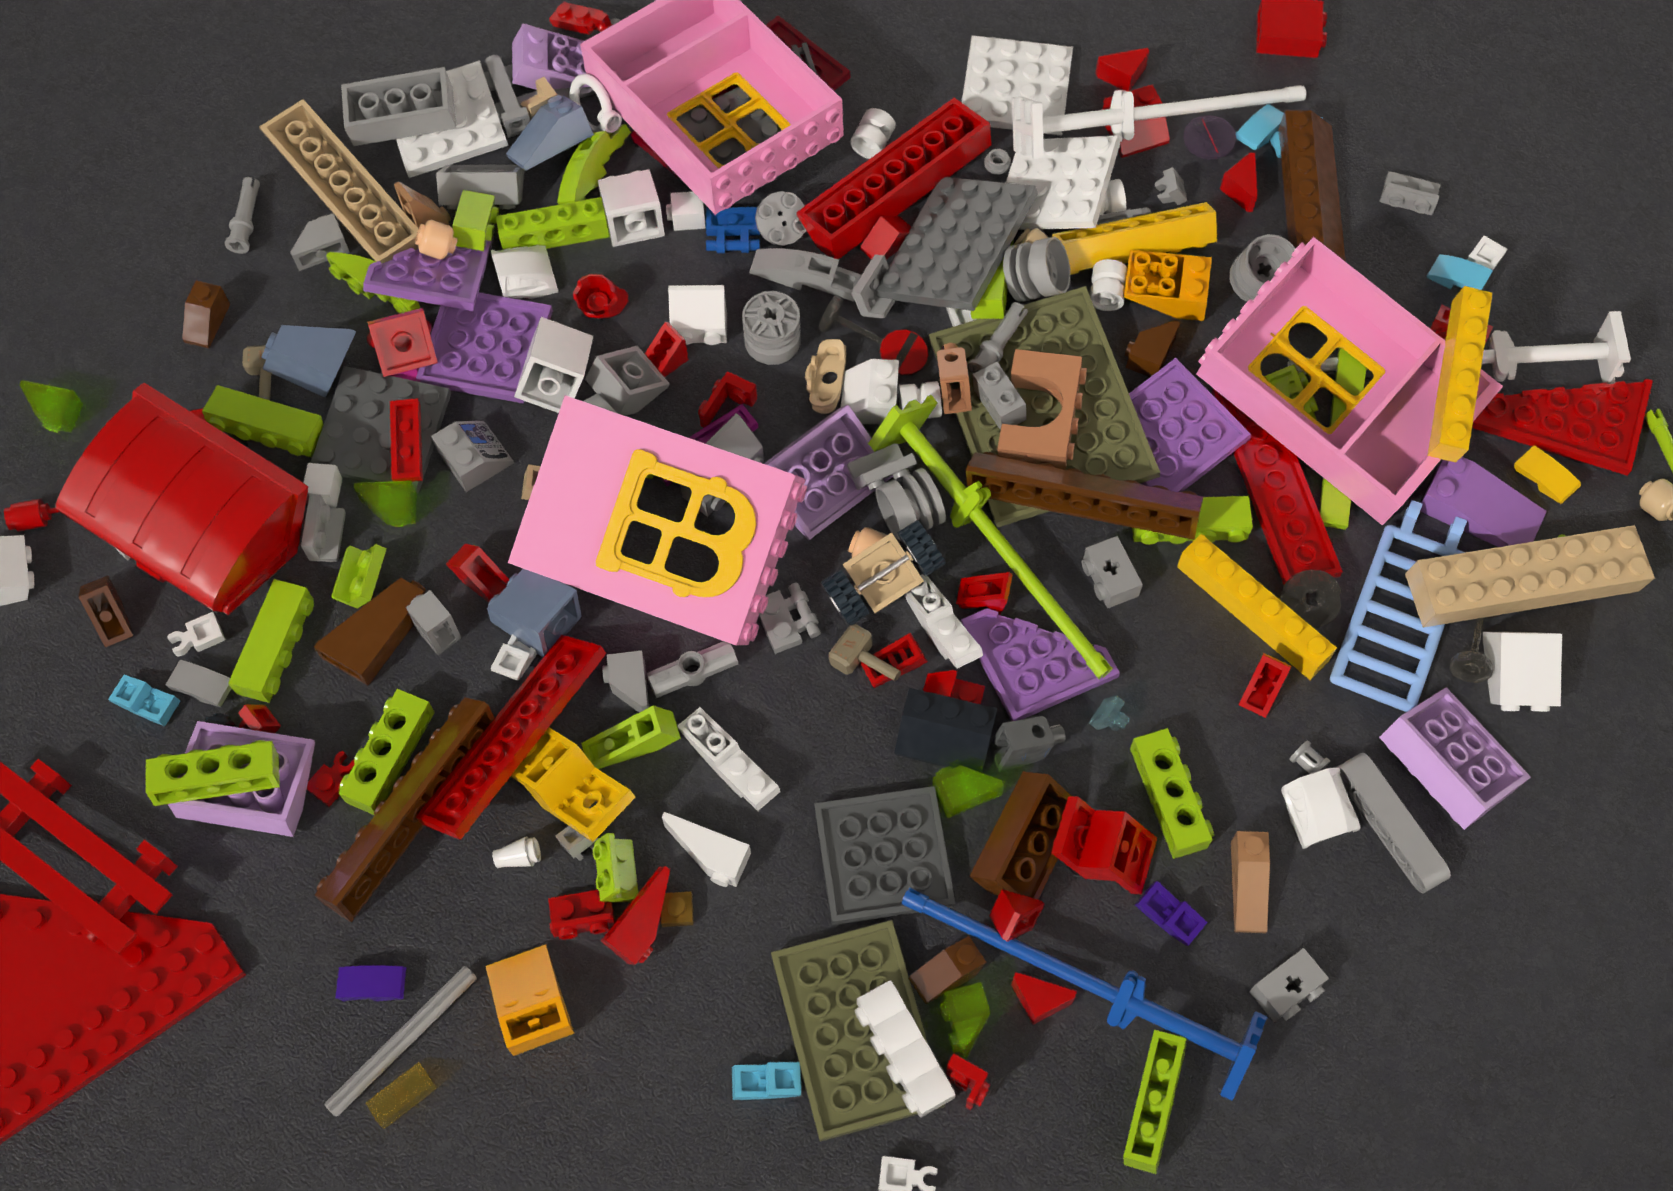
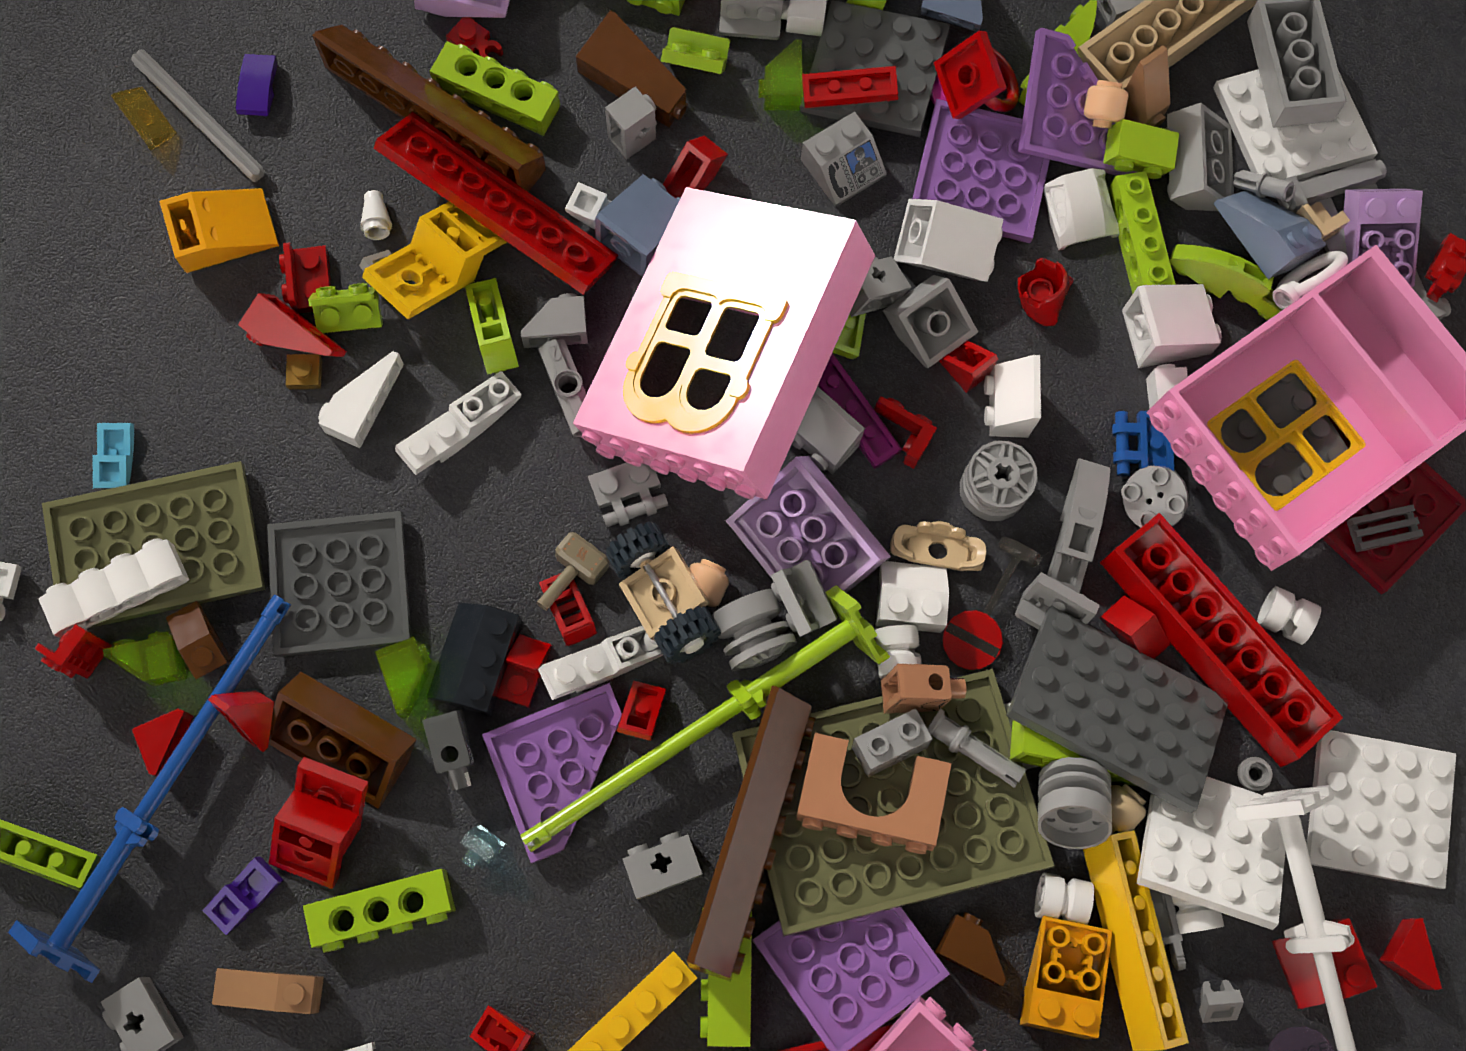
camera: 85 degrees right, 10 degrees up
(507, 137) = (1264, 185): none -> light grey axle

